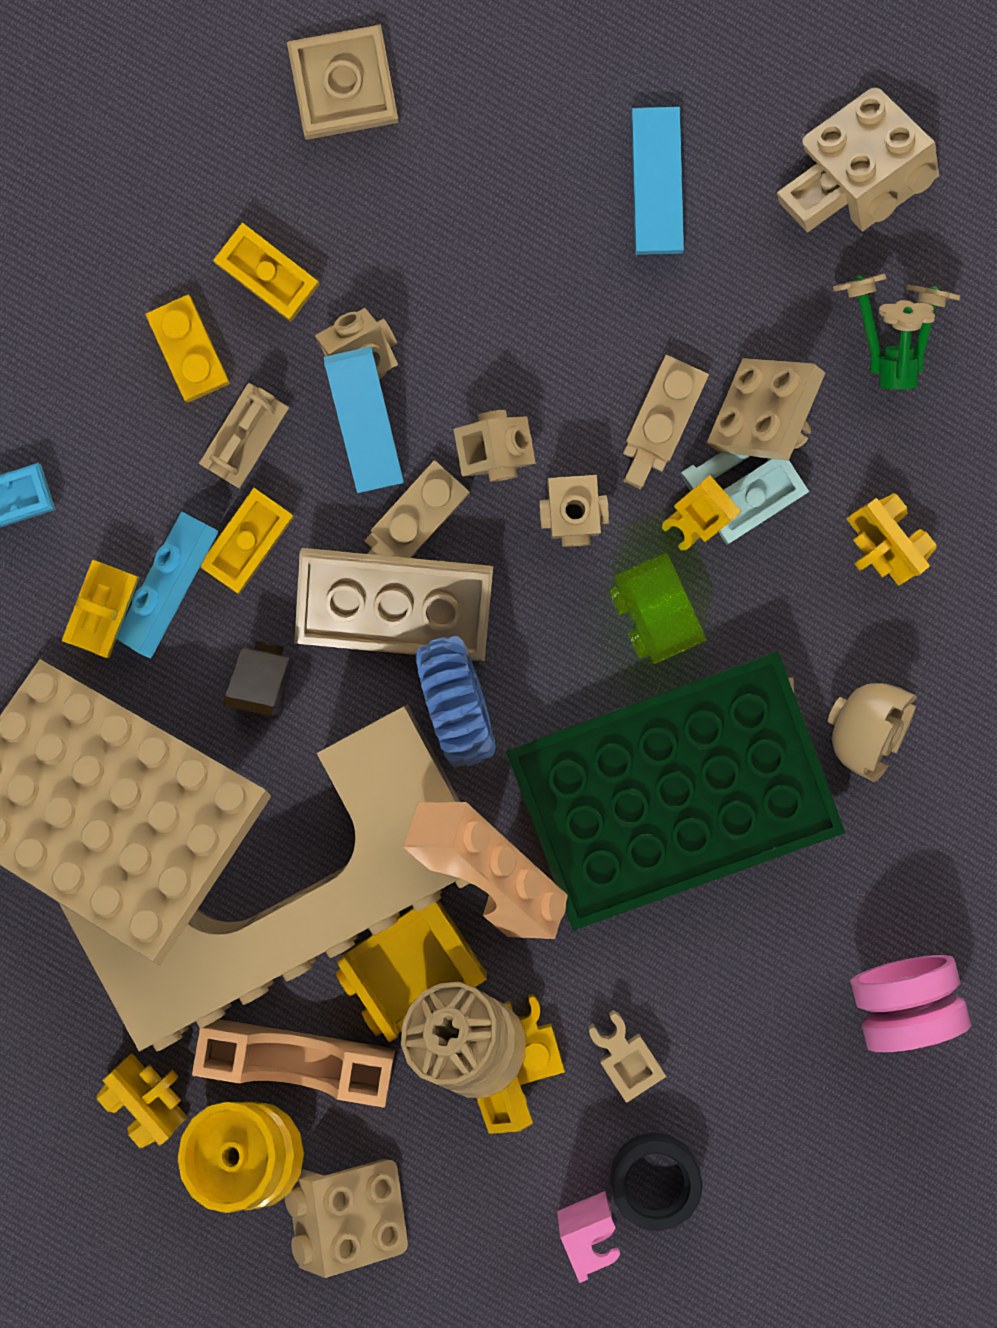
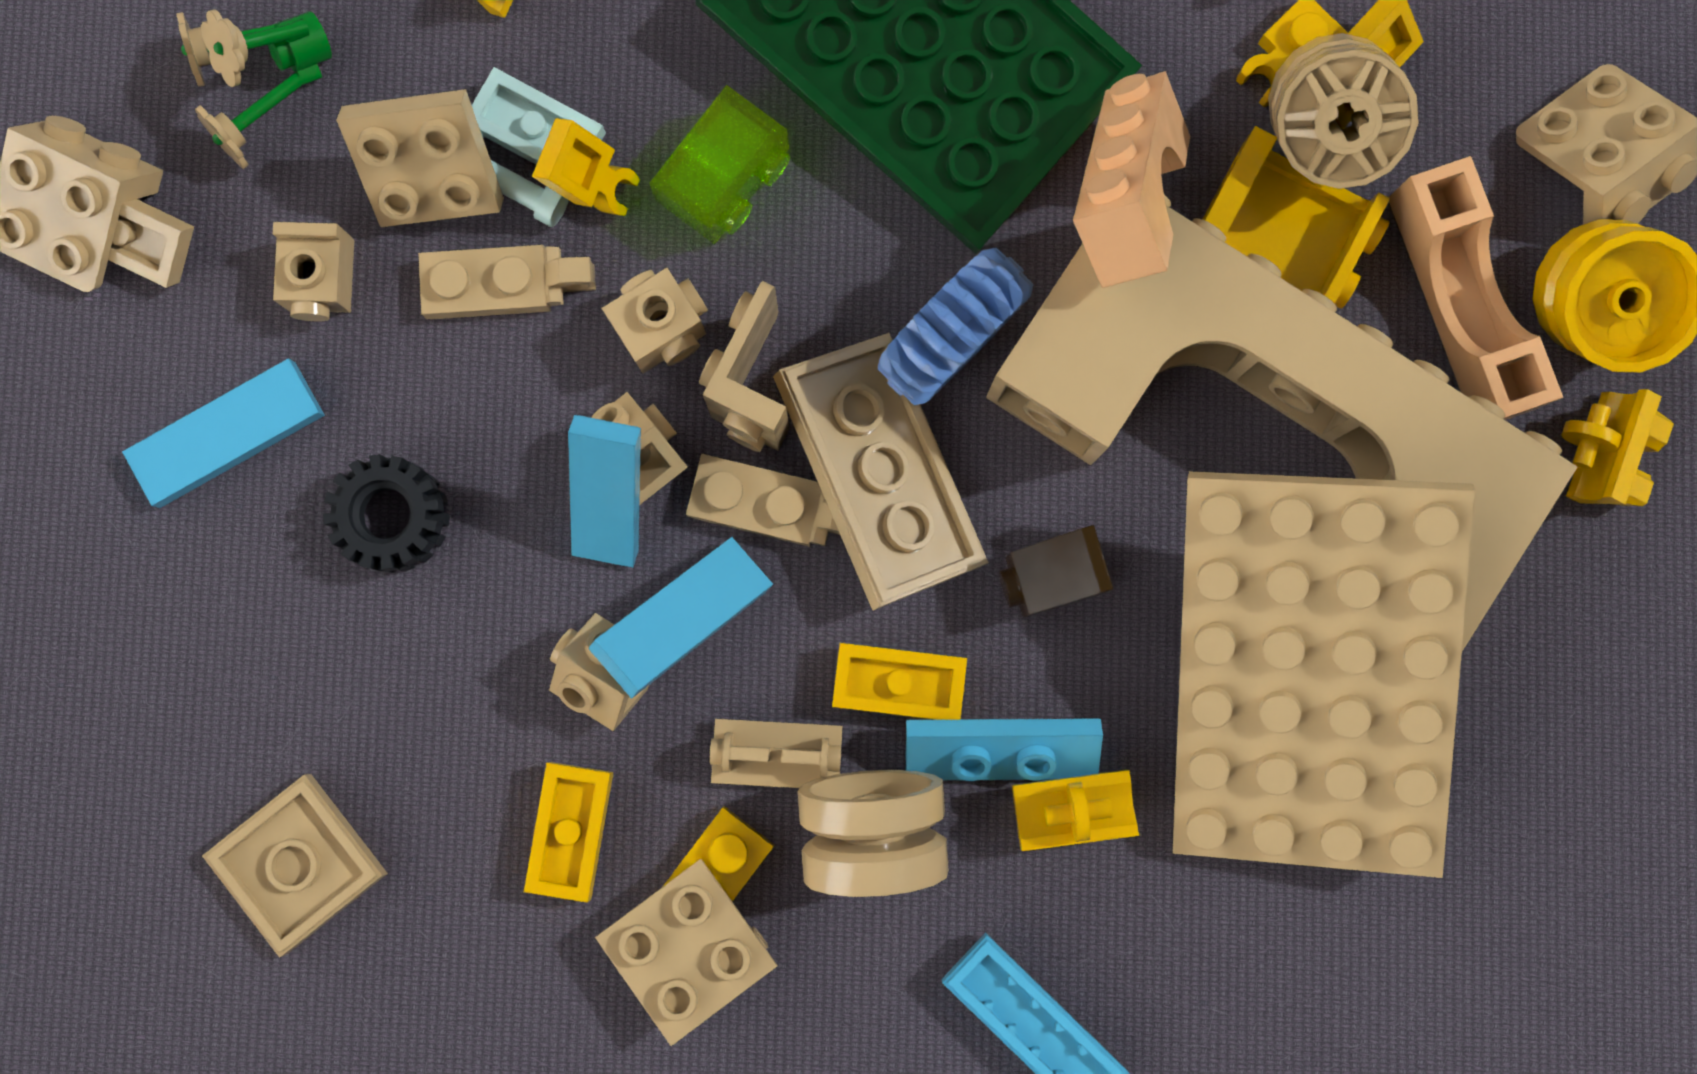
camera: 120 degrees left, 5 degrees down
(146, 308) = (686, 952): none -> tan hinge
(154, 468) = (873, 833): none -> tan wheel
(470, 411) = (604, 490): none -> medium azure tile
(473, 532) = (747, 414): none -> tan bracket
(537, 232) = (349, 508): none -> black tyre
(738, 314) = (330, 284): none -> tan brick

